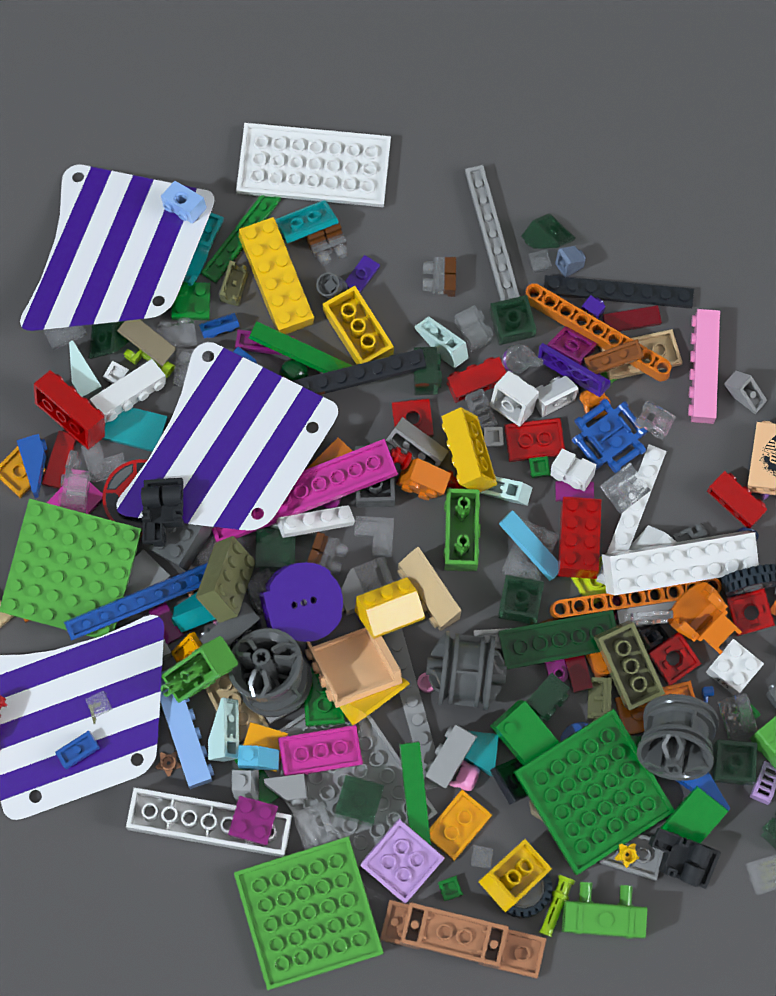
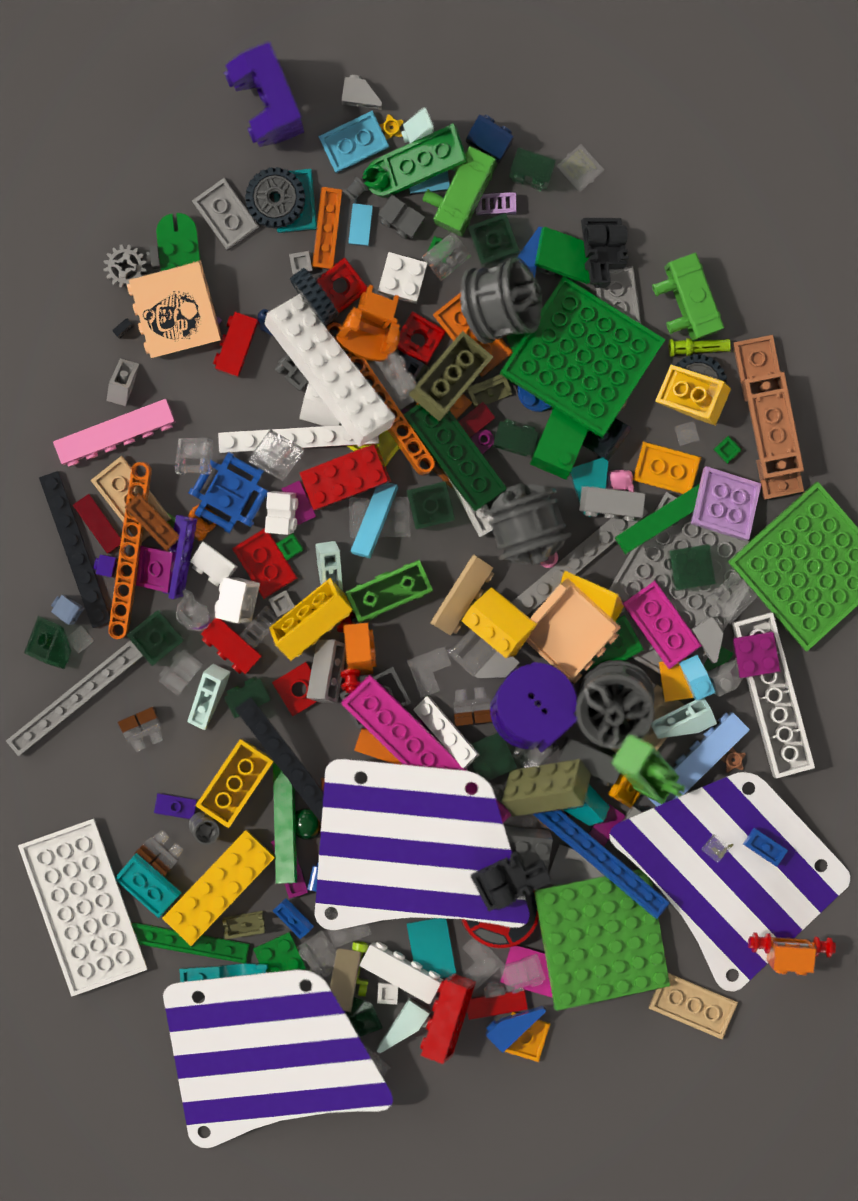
camera: 115 degrees left, 15 degrees up
(192, 205) = (184, 1022): light blue brick -> none
(632, 855) = (624, 297): yellow plate -> none
(707, 692) = (435, 293): blue hand -> none

